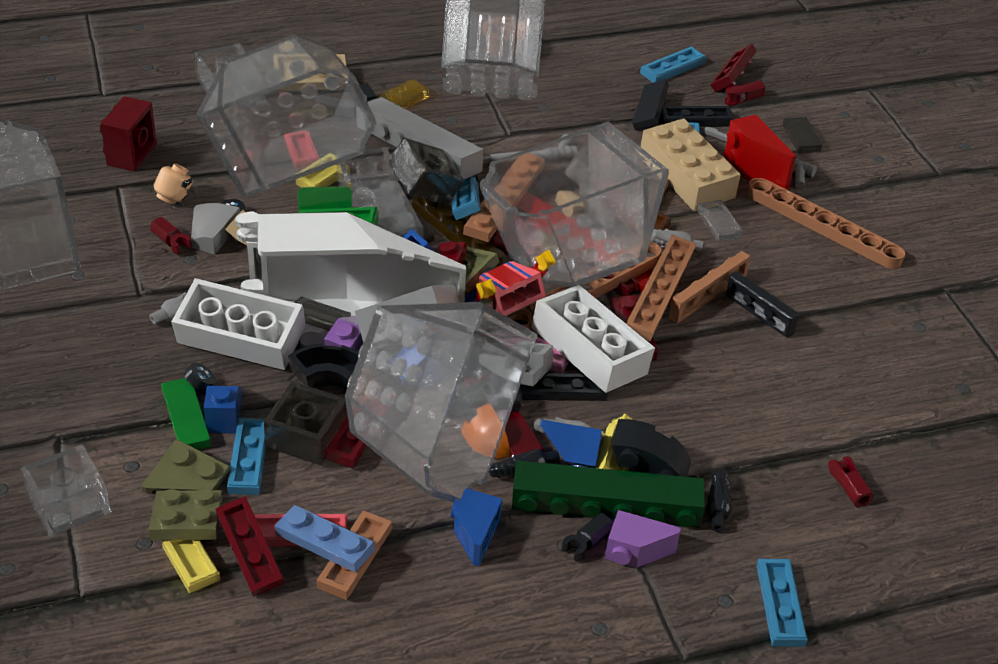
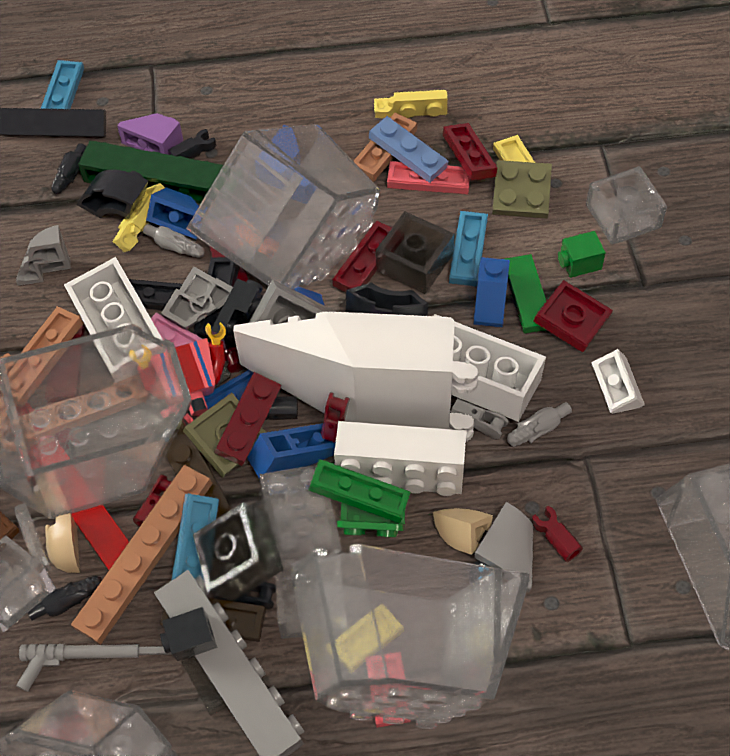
camera: 165 degrees left, 15 degrees up
(100, 346) = (617, 382): none -> white slope
(124, 445) = (581, 254): none -> green brick
(128, 133) = (629, 705): dark red brick -> none
(139, 389) = (573, 316): none -> dark red tile
(173, 184) = (559, 609): light nougat head -> none
(185, 470) = (523, 230): olive wing -> none
(199, 376) = (515, 325): black tile -> none
(324, 610) = (412, 104): none -> light yellow hinge
(447, 122) = (188, 634): none -> black brick
(690, 386) = (44, 254): none -> light grey slope
(766, 549) = (53, 122): none -> black tile

